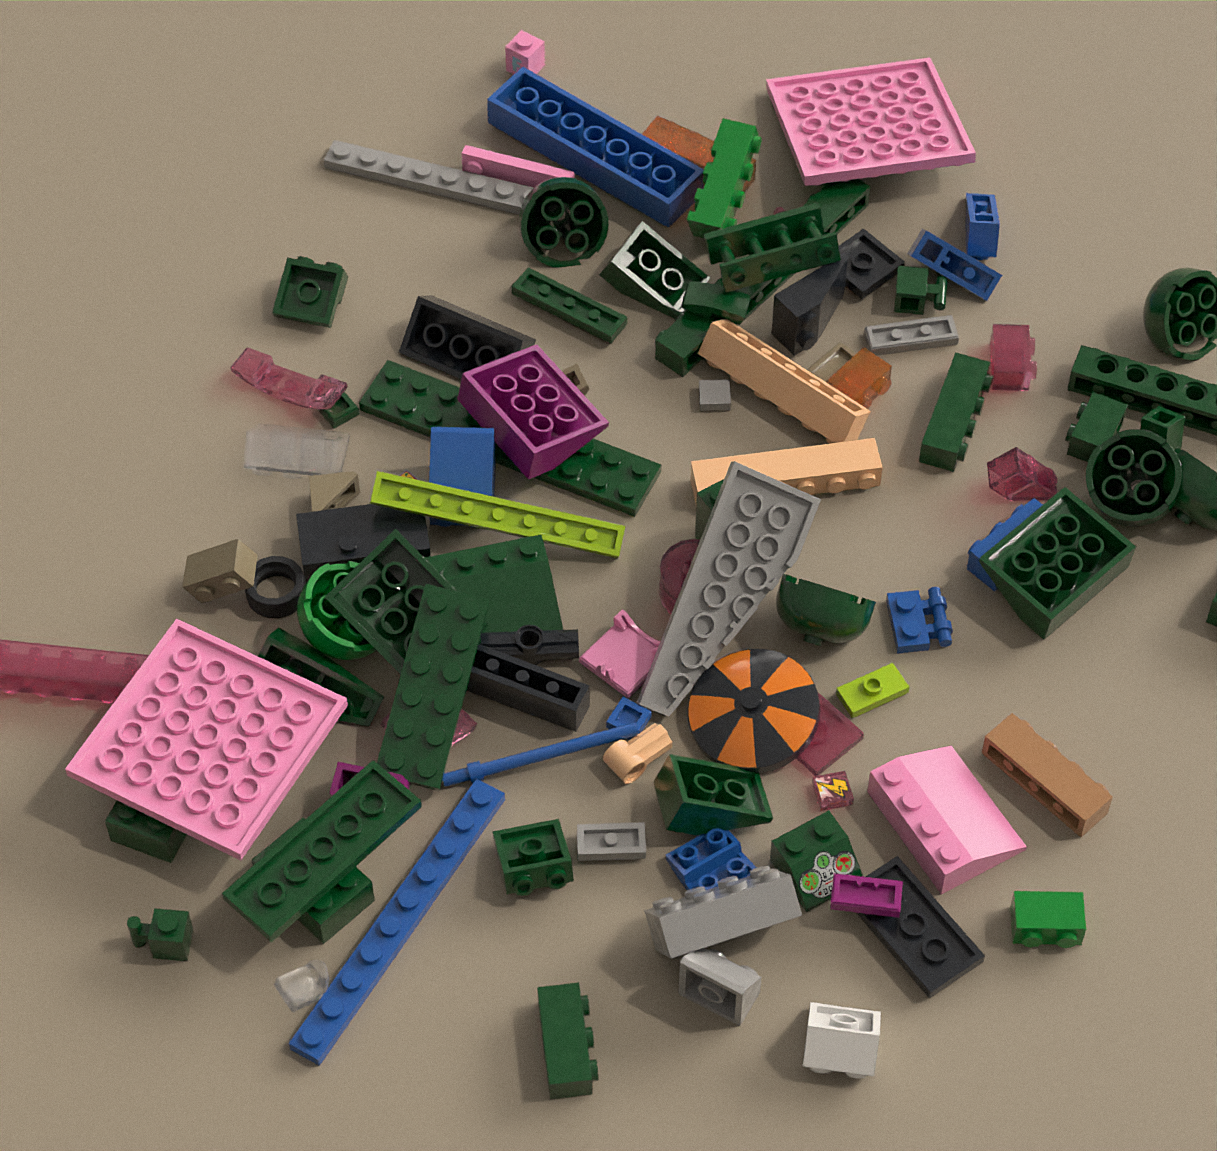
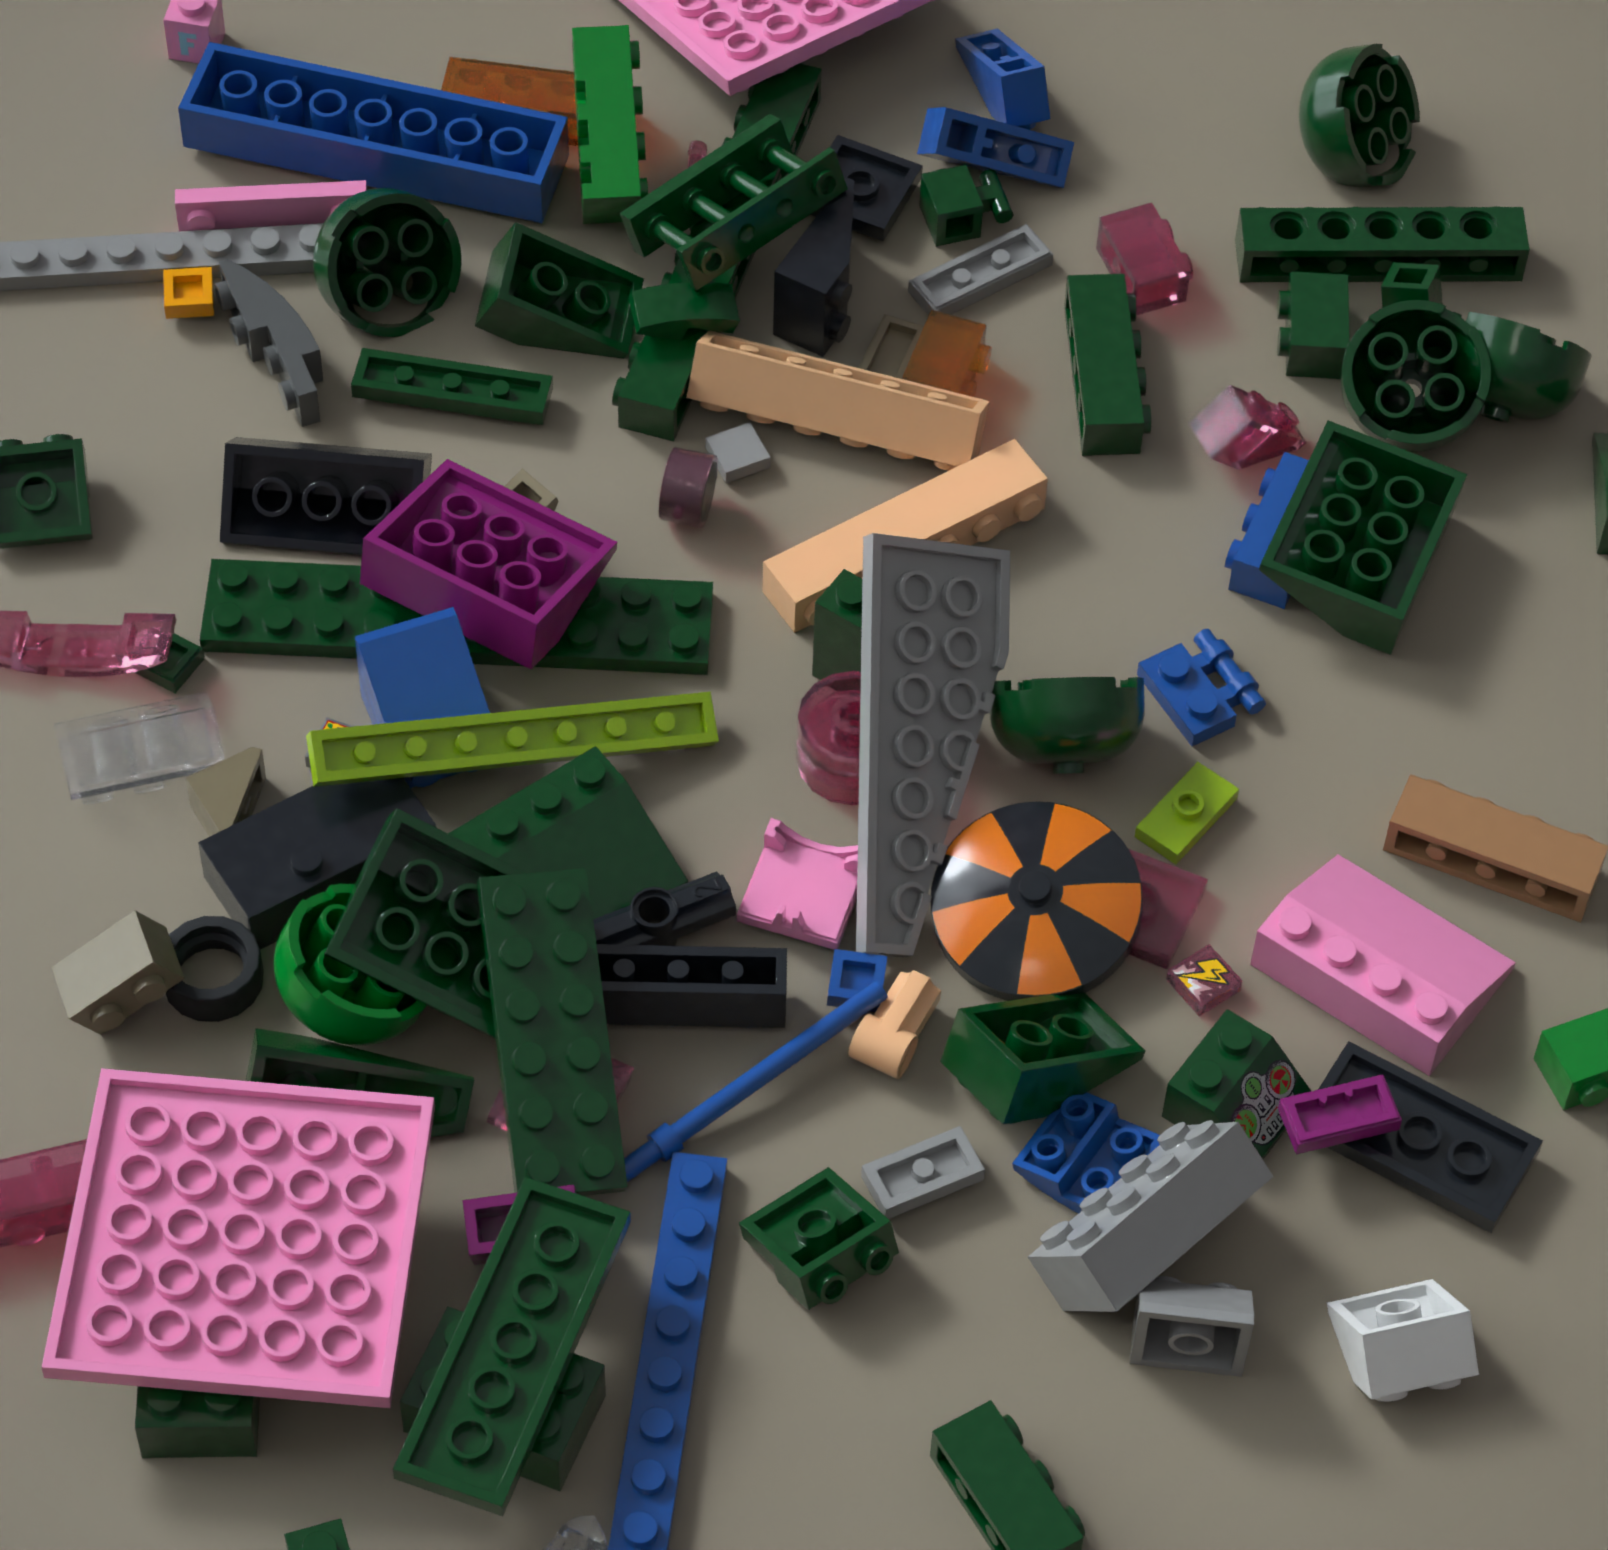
camera: 25 degrees left, 0 degrees up
(448, 206) = (188, 292): none -> light orange plate
(482, 245) = (273, 333): none -> dark grey slope
(671, 405) = (688, 487): none -> clear pink piece

